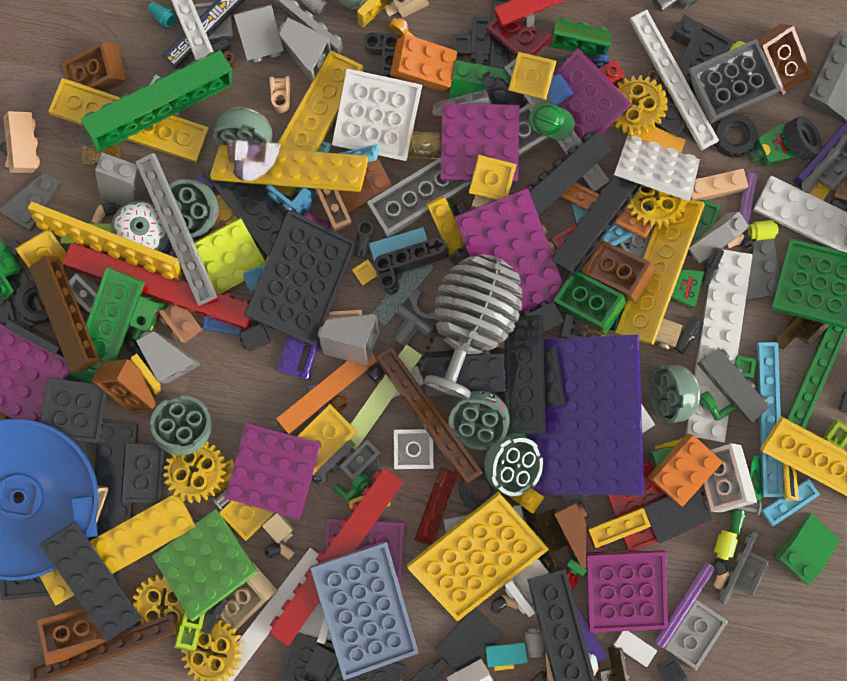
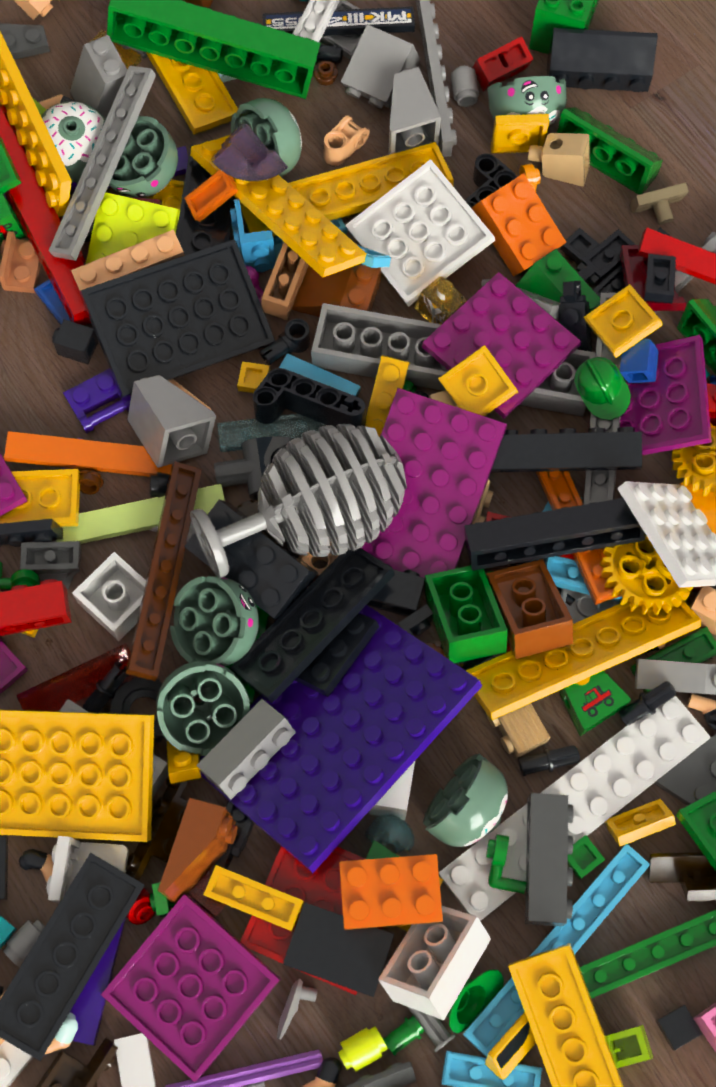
camera: 45 degrees right, 15 degrees down
(246, 273) = (129, 260): none -> light nougat plate
(249, 195) = (211, 195): none -> orange tile
(453, 496) = (105, 688): none -> black axle
(528, 32) = (660, 278): none -> black plate
(554, 465) = (246, 749): none -> light grey brick
(653, 434) = (392, 830): none -> clear light blue hair
(677, 557) = (291, 1006): none -> light grey bar
(756, 326) = (640, 822): none -> yellow plate

